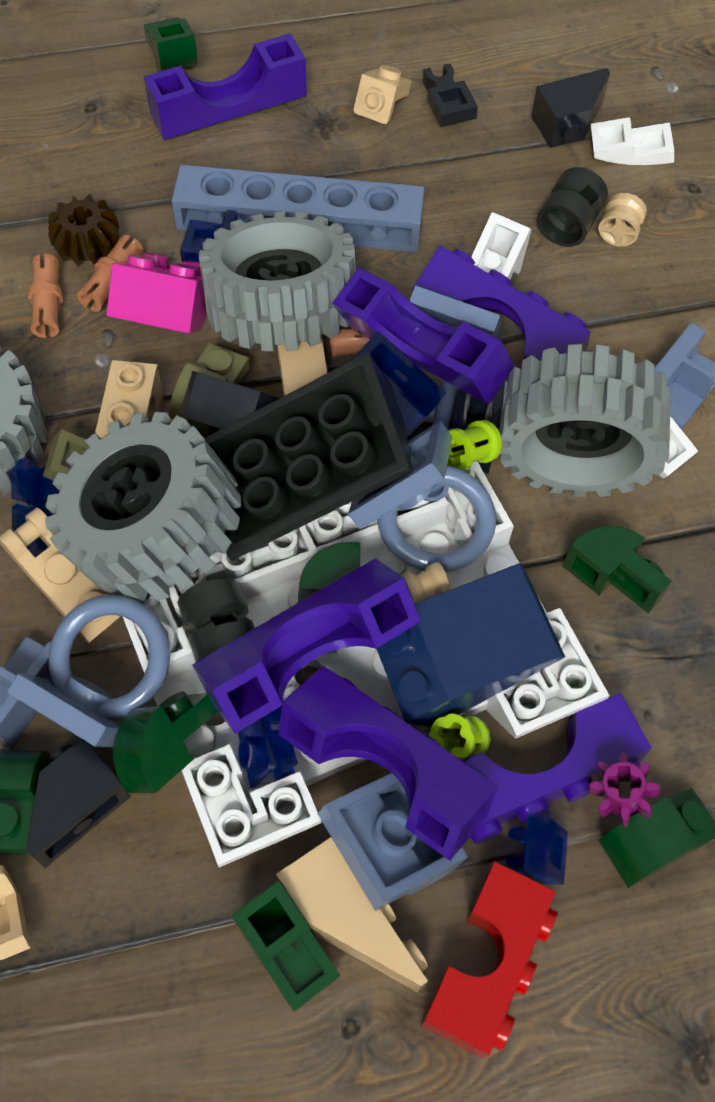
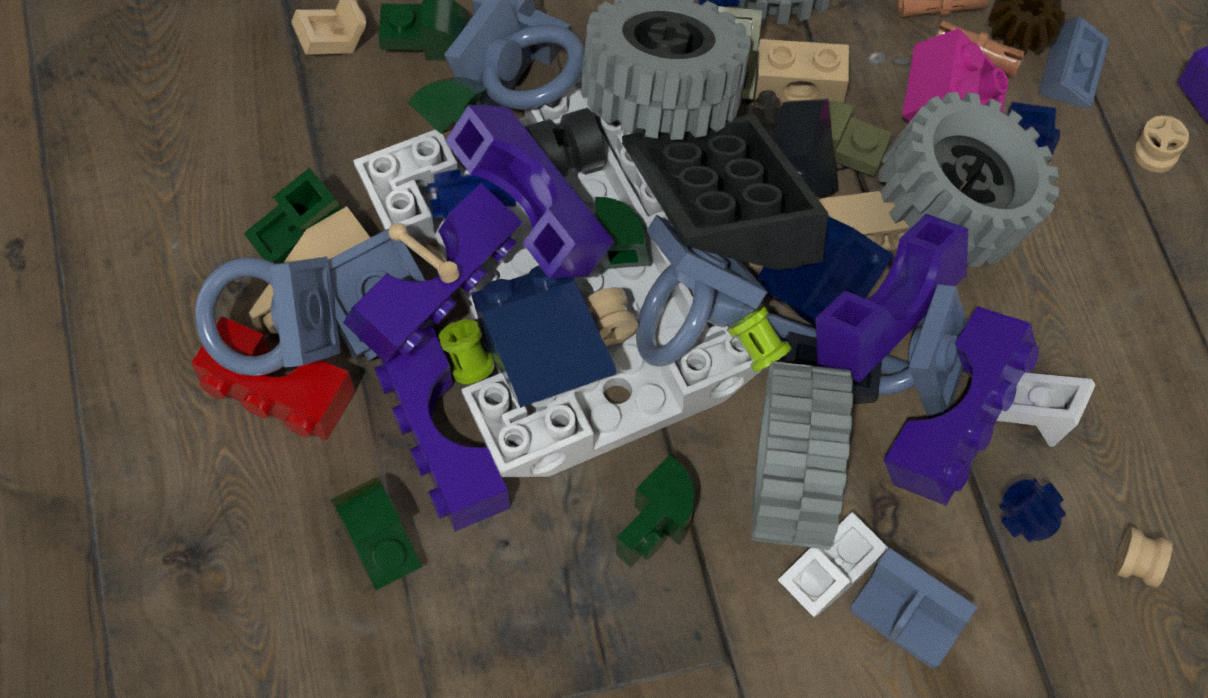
camera: 90 degrees right, 0 degrees up
(71, 800) = (411, 60): black slope -> none
(136, 208) = (1075, 64): none -> sand blue slope
(231, 150) = (1172, 140): none -> tan wheel
(371, 212) = (1090, 141): sand blue brick -> none
(404, 731) = (447, 270): none -> tan hinge
(457, 905) = (299, 310): none -> sand blue tile
(543, 850) = (364, 427): clear blue tile -> none
(572, 207) = (1131, 487): pearl dark grey wheel -> none
(582, 291) = (1032, 510): none -> clear blue gear
(639, 789) = (404, 474): magenta gear -> none

